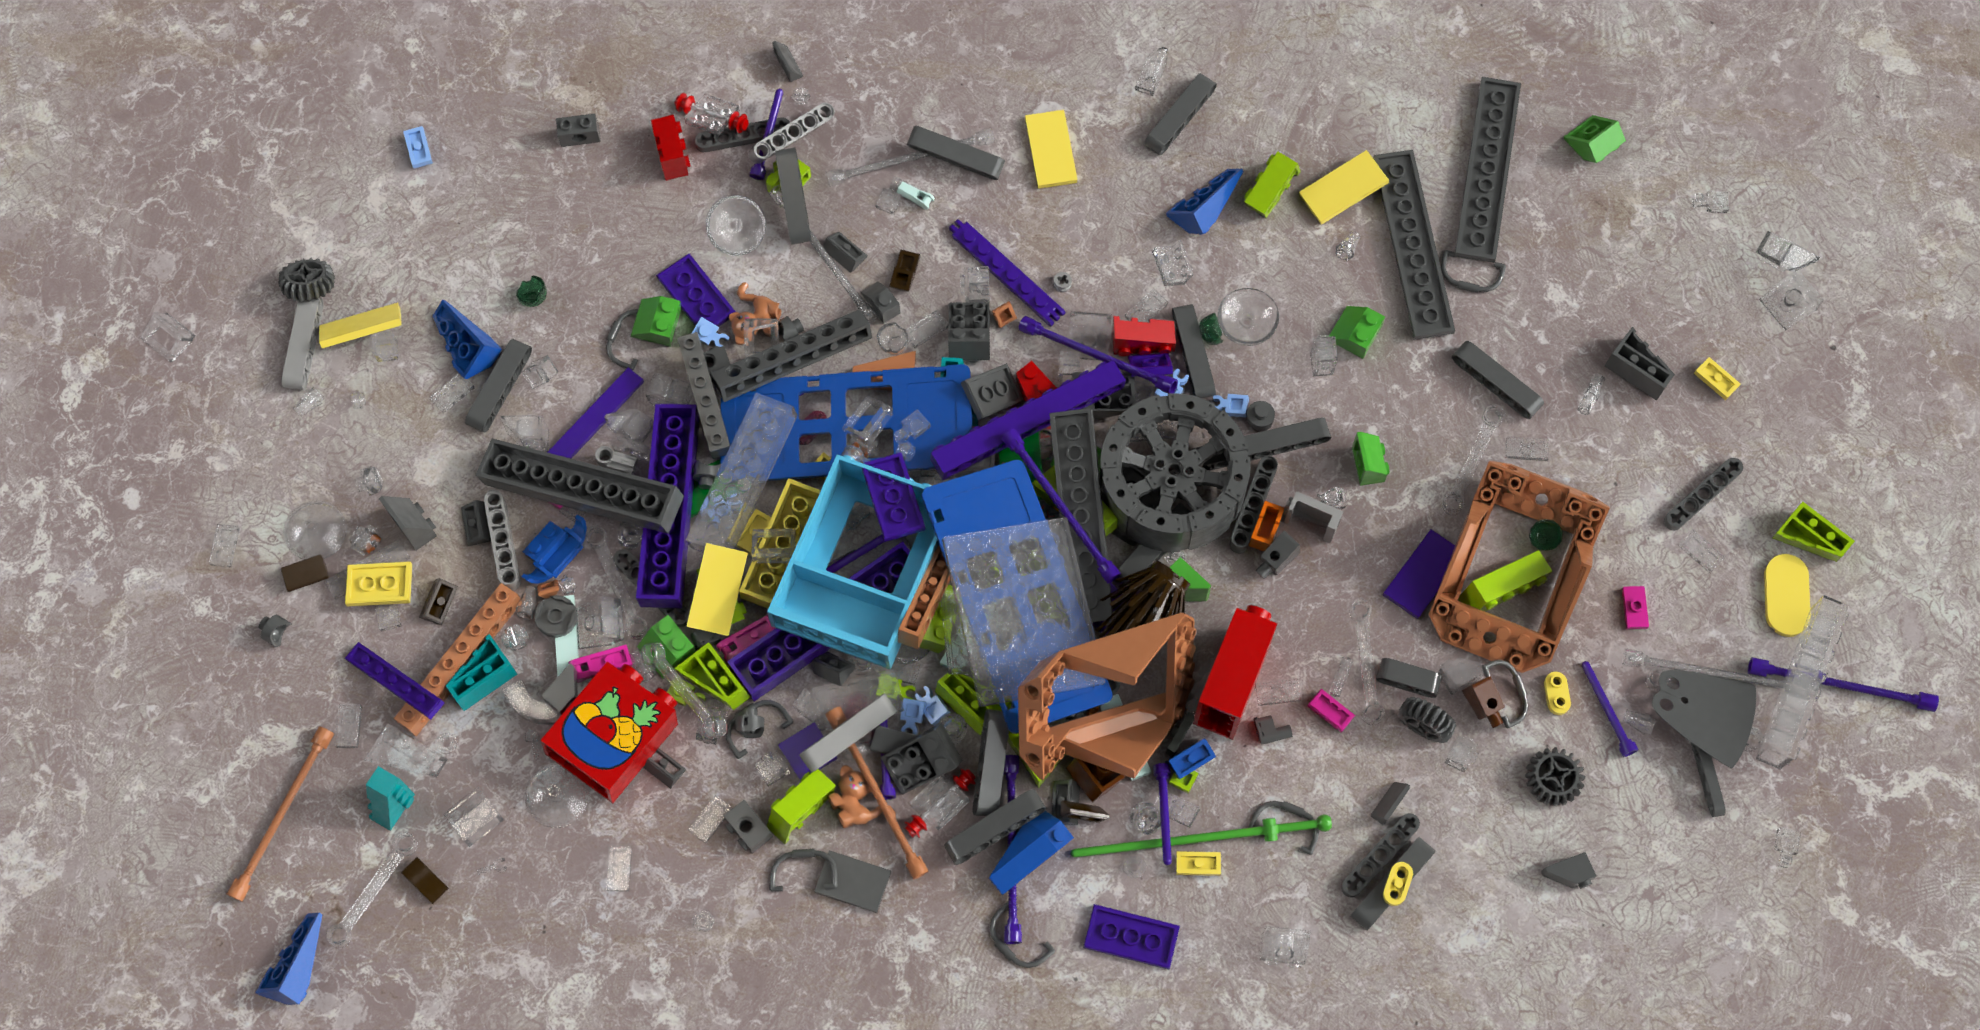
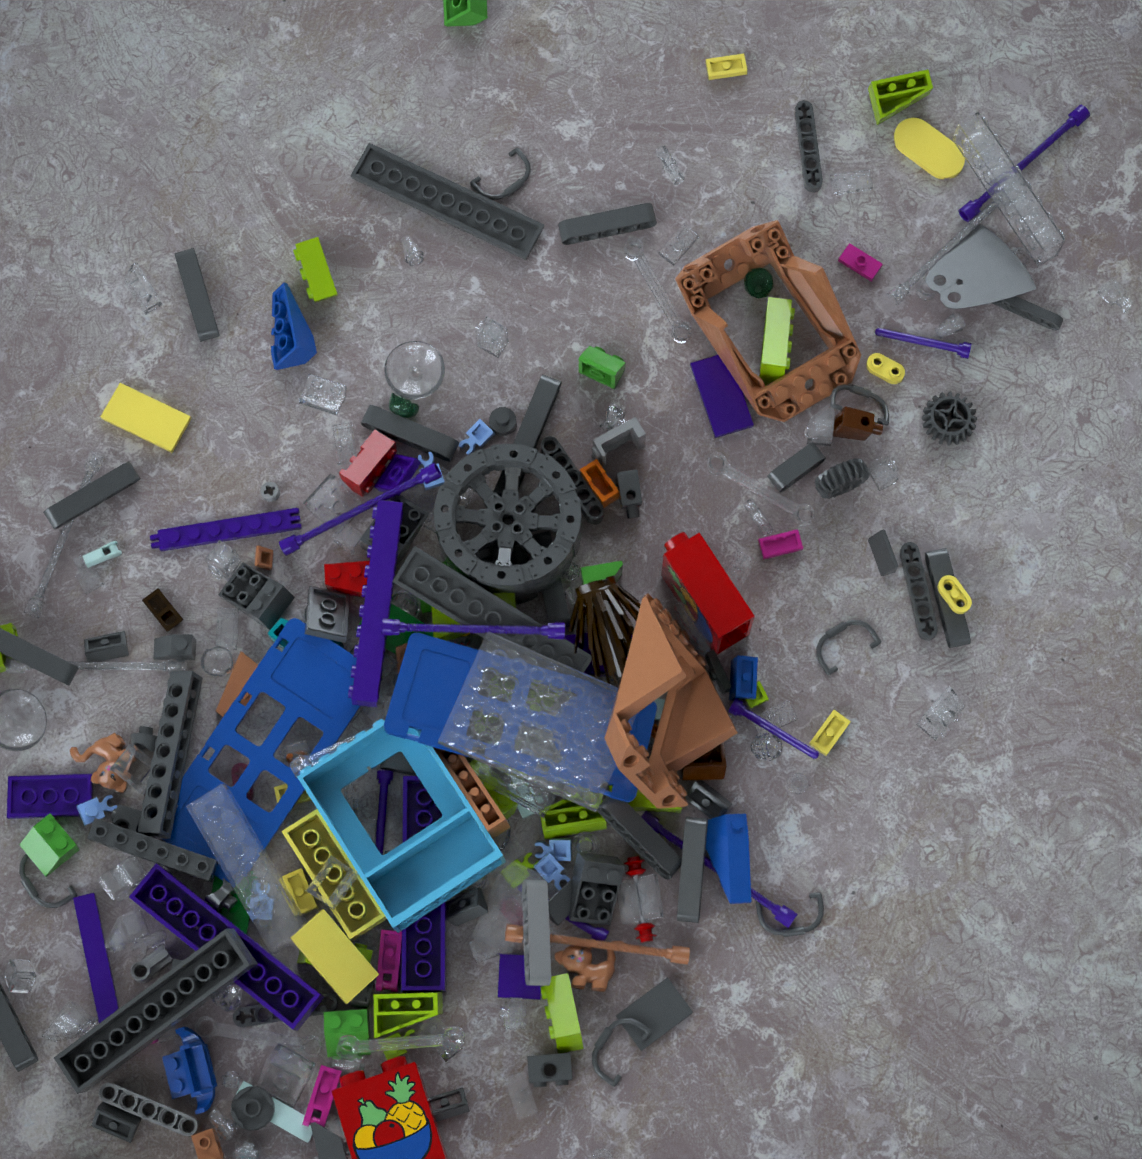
camera: 55 degrees left, 5 degrees up
(548, 589) = (223, 1098): nougat slope -> none
(738, 755) = (450, 998): dark grey piece -> none
(750, 724) = (464, 1008): dark grey piece -> none
(875, 425) = (289, 730): clear tile -> none
(893, 501) = (370, 759): dark purple tile -> none
(907, 450) = (330, 720): clear plate -> none
(913, 425) = (312, 698): clear plate -> none
(1083, 812) = (727, 791): dark brown slope -> none
(1131, 937) = (850, 825): dark purple tile -> none
(1268, 733) = (763, 604): dark grey piece -> none
(1269, 830) = (841, 659): bright green bar -> none
(1344, 187) = (360, 217): light yellow tile -> none
(1357, 329) = (486, 296): bright green slope -> none
(1487, 170) = (428, 100): dark grey plate -> none
(1571, 871) = (1030, 460): dark grey slope -> none
(1639, 365) = (675, 113): dark grey wedge -> none

